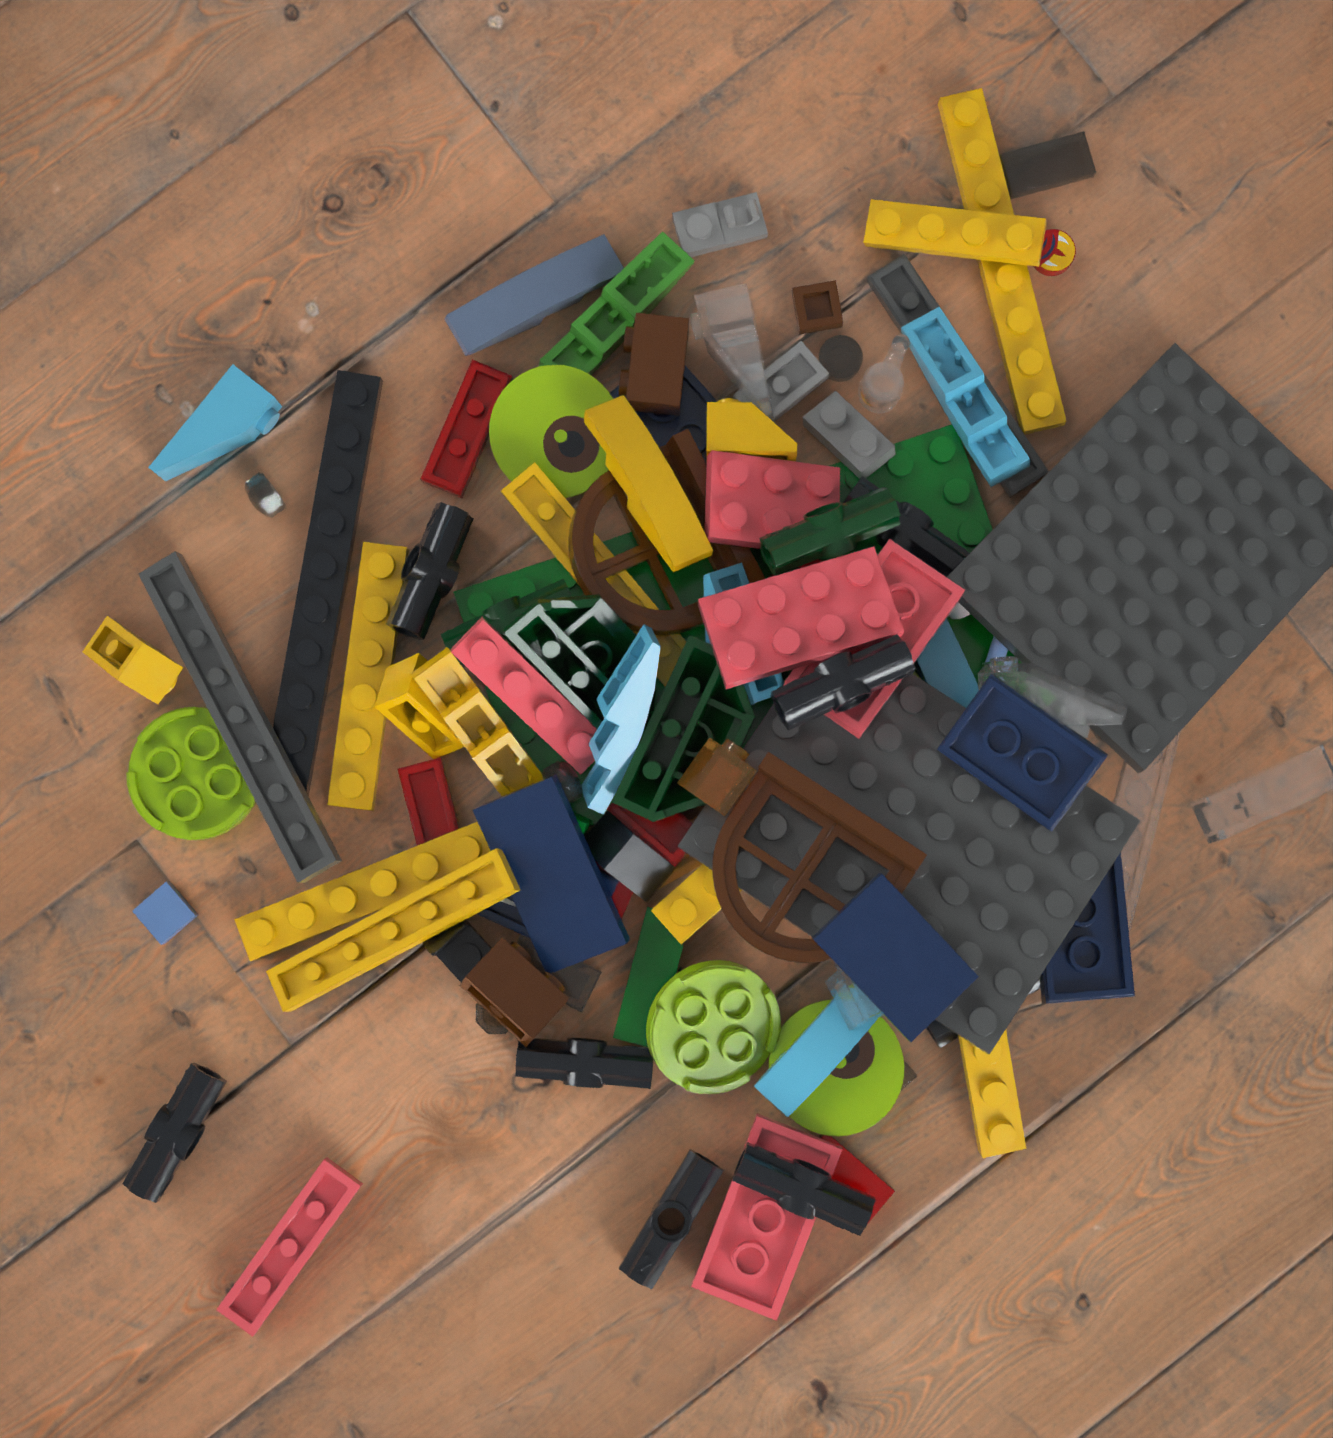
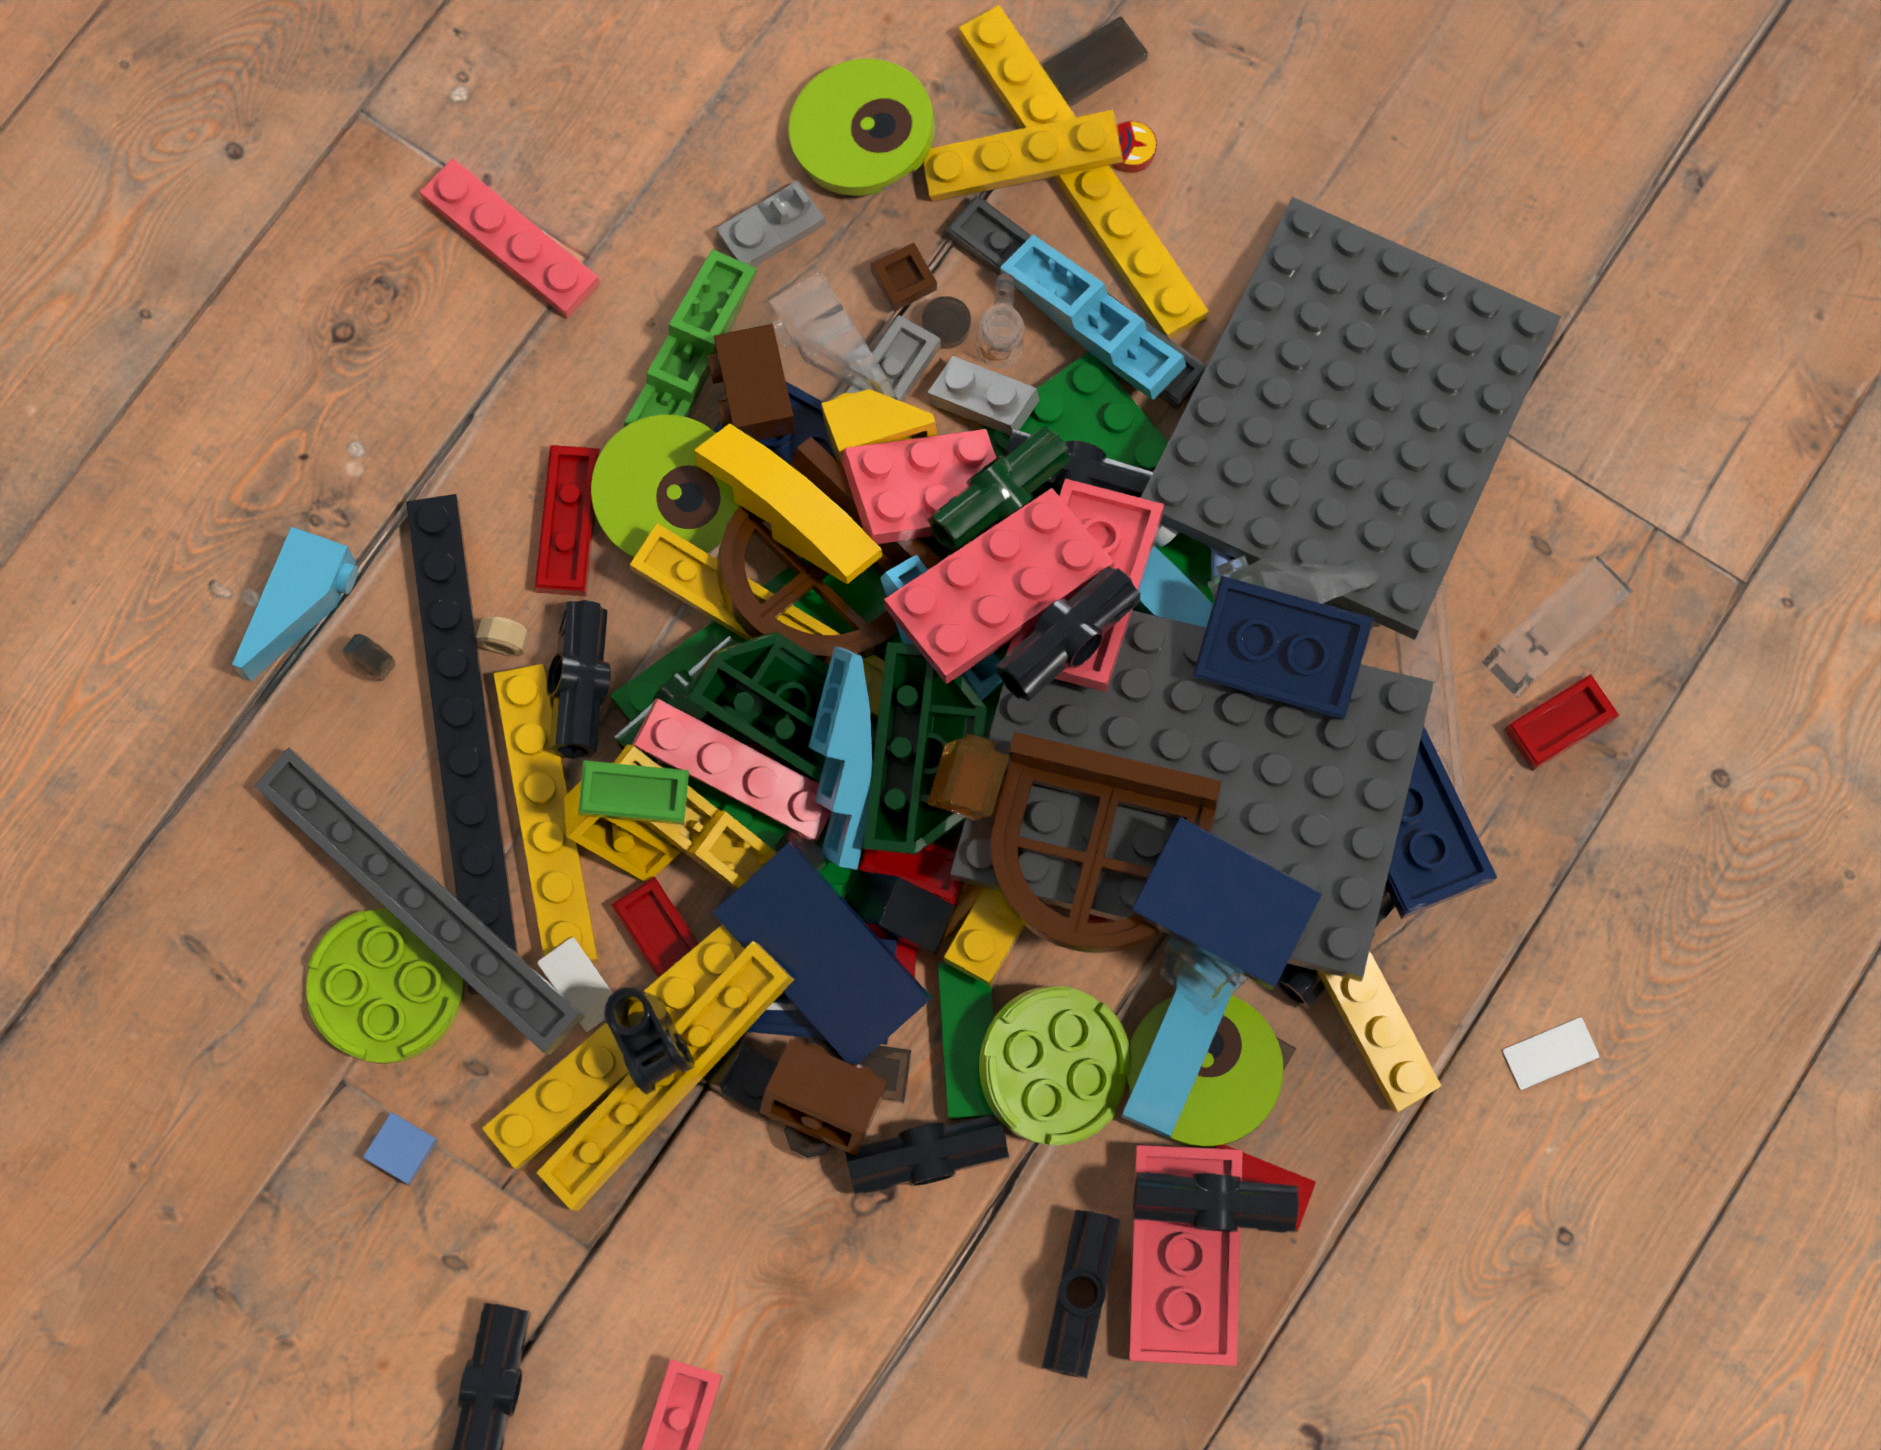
camera: 25 degrees left, 10 degrees down
(132, 660) = (277, 880): yellow slope -> none
(350, 827) = (577, 981): none -> white sticker
(380, 512) = (502, 636): none -> tan tile
(384, 903) = (652, 1046): none -> black piece
(437, 692) = (633, 792): none -> bright green tile
(497, 165) = (510, 238): none -> coral plate
(533, 295) = (595, 357): sand blue slope -> none
(826, 161) = (861, 126): none -> lime tile
(1127, 1149) = (1551, 1053): none -> white sticker
(1238, 876) = (1561, 722): none -> red tile

